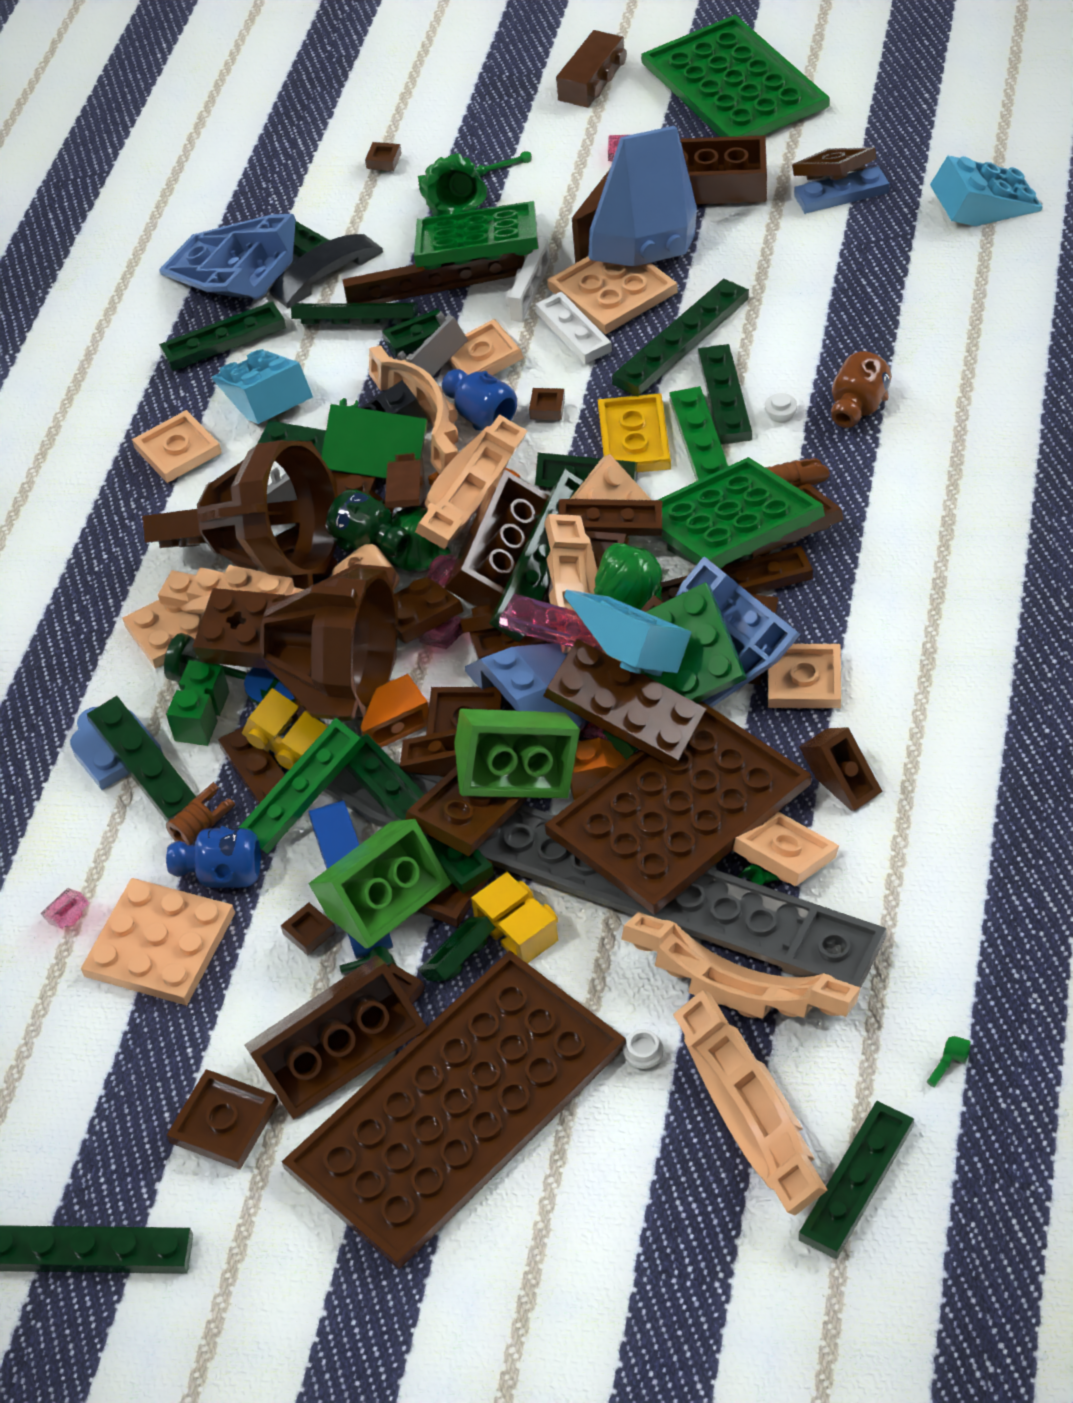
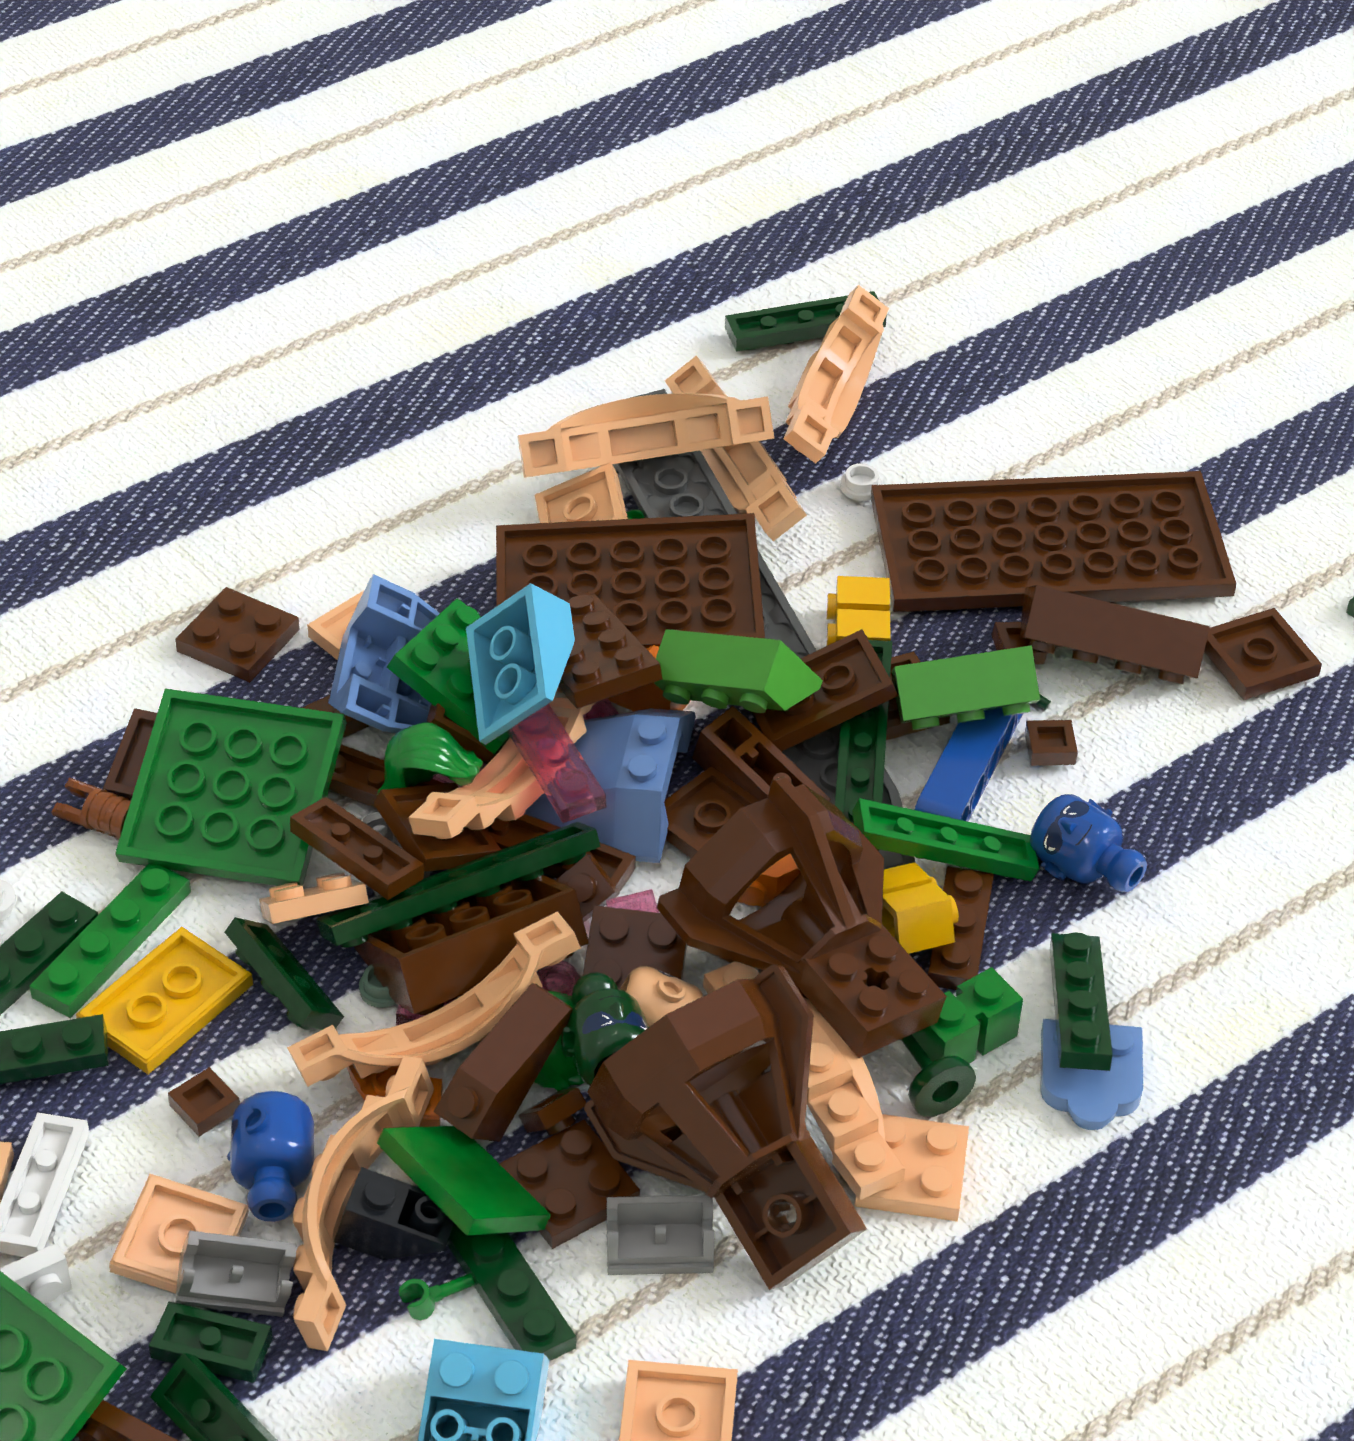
camera: 145 degrees left, 5 degrees down
(65, 909) = (1276, 916): clear pink plate -> none
(158, 941) = (1203, 840): light nougat plate -> none
(197, 816) = (1065, 913): dark orange hinge -> none
(465, 941) = (937, 634): dark green plate -> none
(809, 902) = (644, 430): none -> light nougat piece
(841, 766) = (449, 545): reddish brown slope -> none
(881, 623) = (237, 634): none -> reddish brown plate
(955, 1049) = (640, 342): green hand -> none

